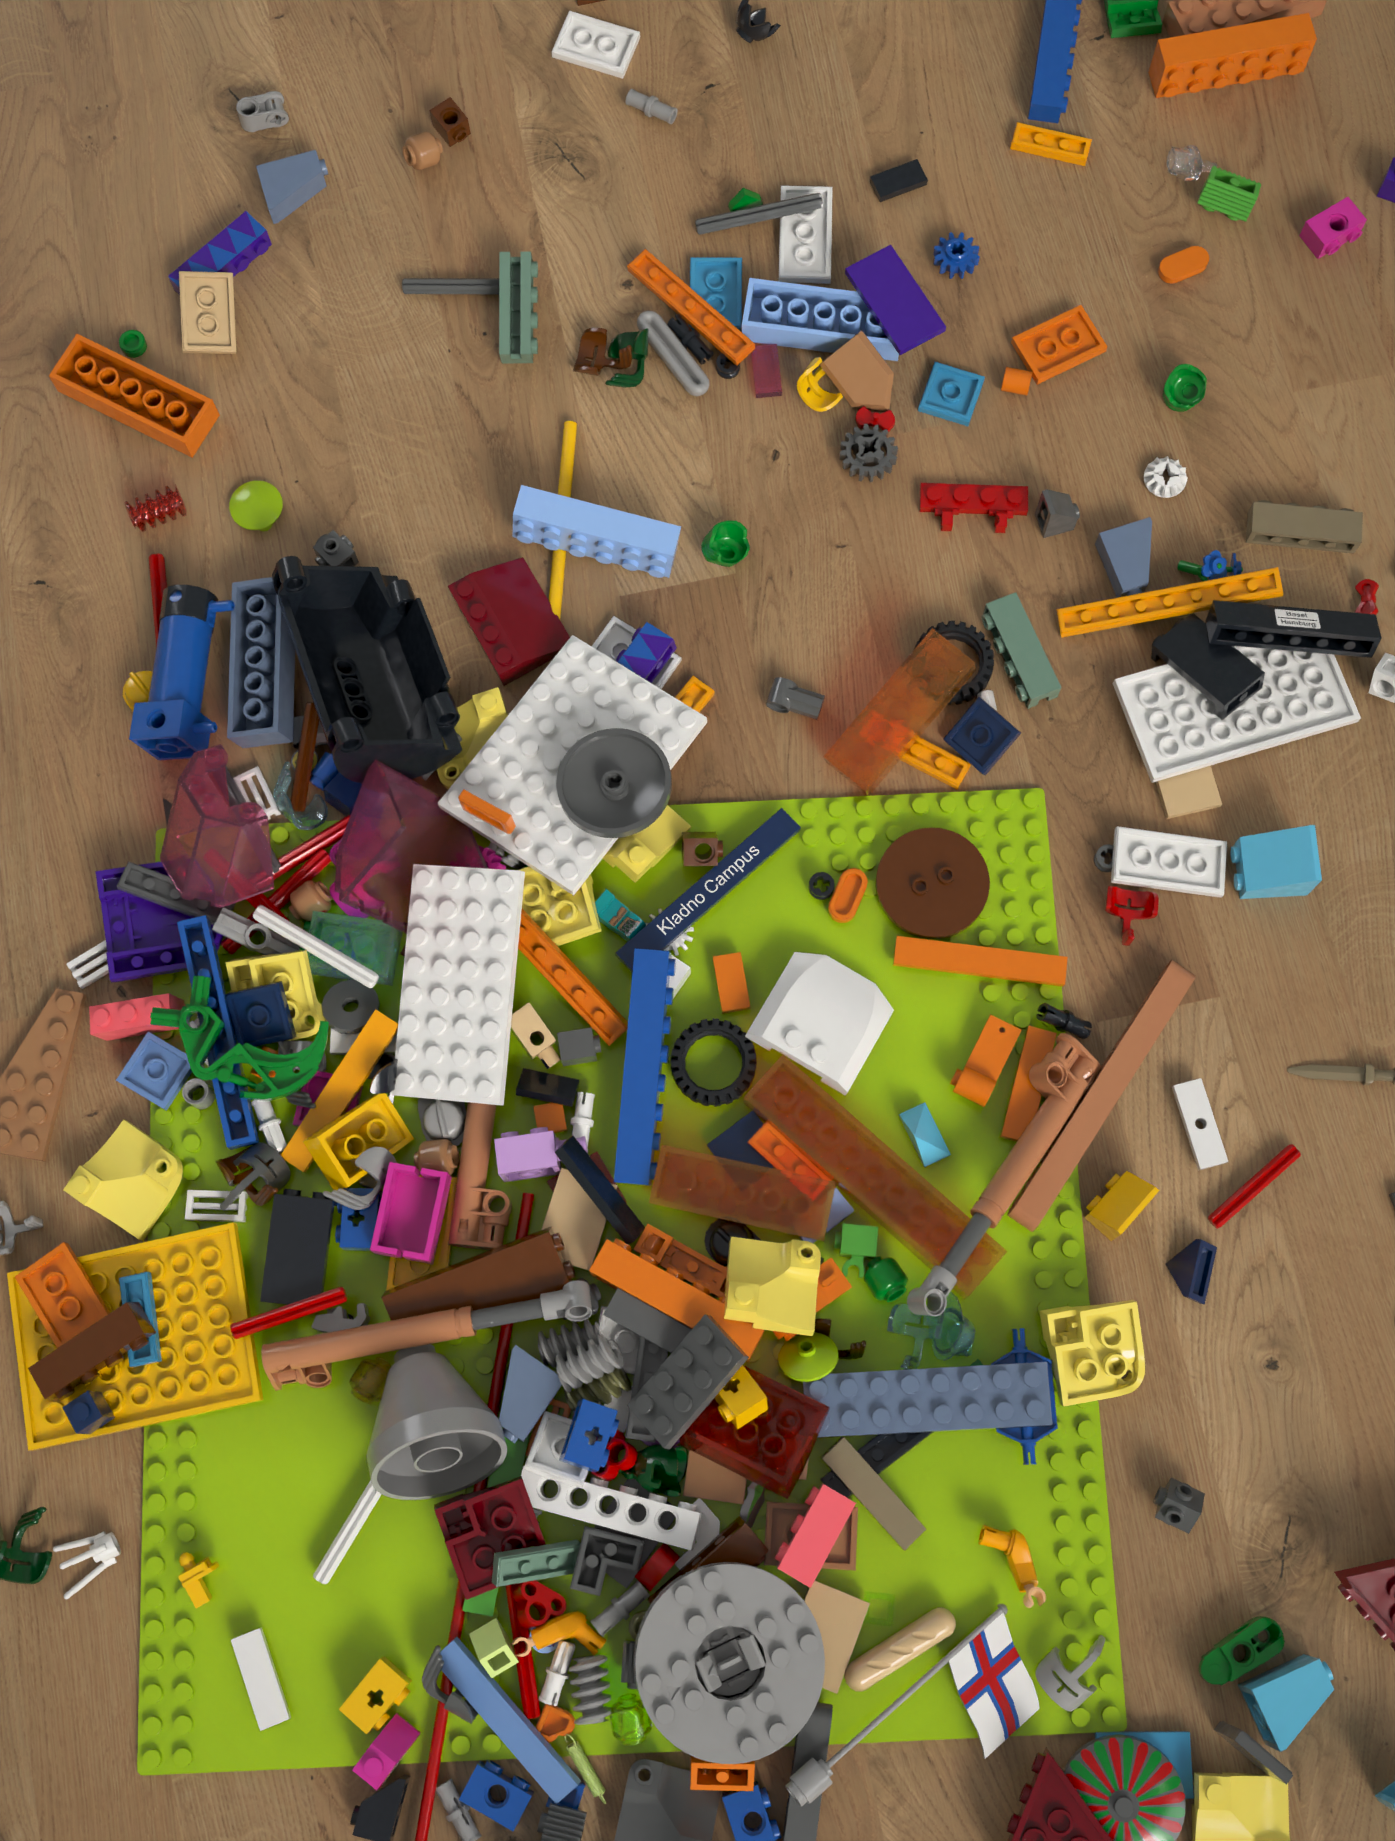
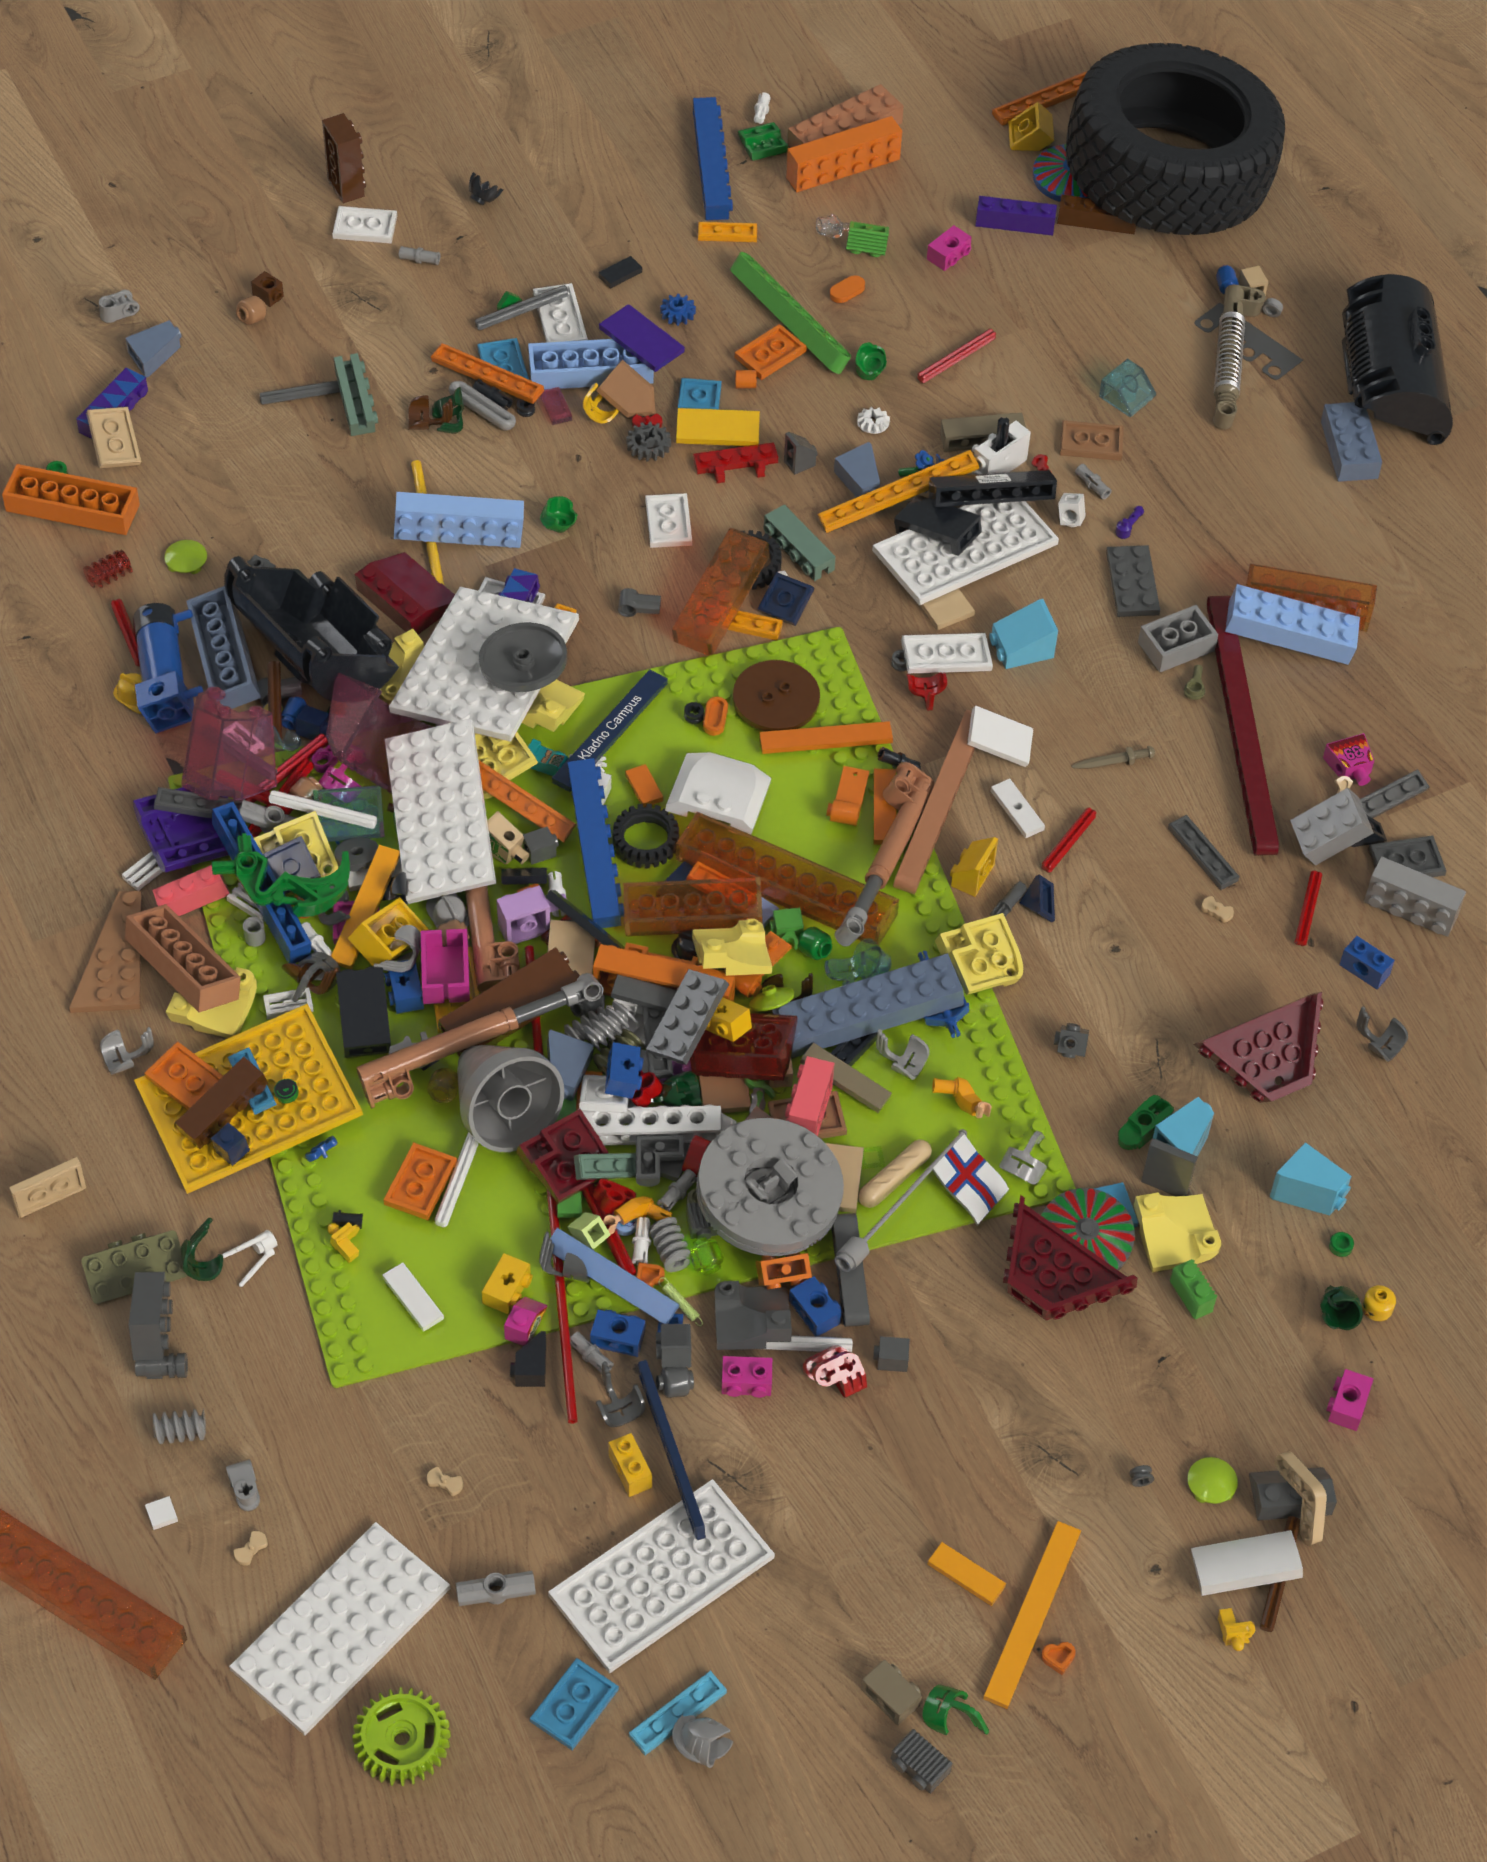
camera: 20 degrees left, 20 degrees down
(96, 1123) = (182, 958): none -> nougat brick
(156, 1071) = (218, 923): medium blue plate -> none
(176, 1348) = (286, 1091): none -> tile
(202, 1434) = (321, 1149): none -> blue piece
(208, 1547) = (342, 1219): none -> black pin
(288, 1312) = (368, 1047): red axle -> none
(309, 1513) = (420, 1181): none -> orange plate
(487, 812) = (431, 696): orange tile -> none
(691, 840) = (588, 706): reddish brown brick -> none
(864, 577) = (668, 520): none -> white tile
(924, 1134) = (816, 851): medium azure slope -> none
(962, 448) = (717, 427): none -> yellow tile
(973, 1483) = (915, 1046): none -> light grey helmet
(1099, 291) = (790, 313): none -> bright green beam
(1150, 1265) = (1010, 899): none -> dark grey piece
(1205, 1012) = (1000, 736): none -> white tile
(1300, 398) = (956, 356): none -> axle
(1320, 571) = (1002, 450): none -> white piece

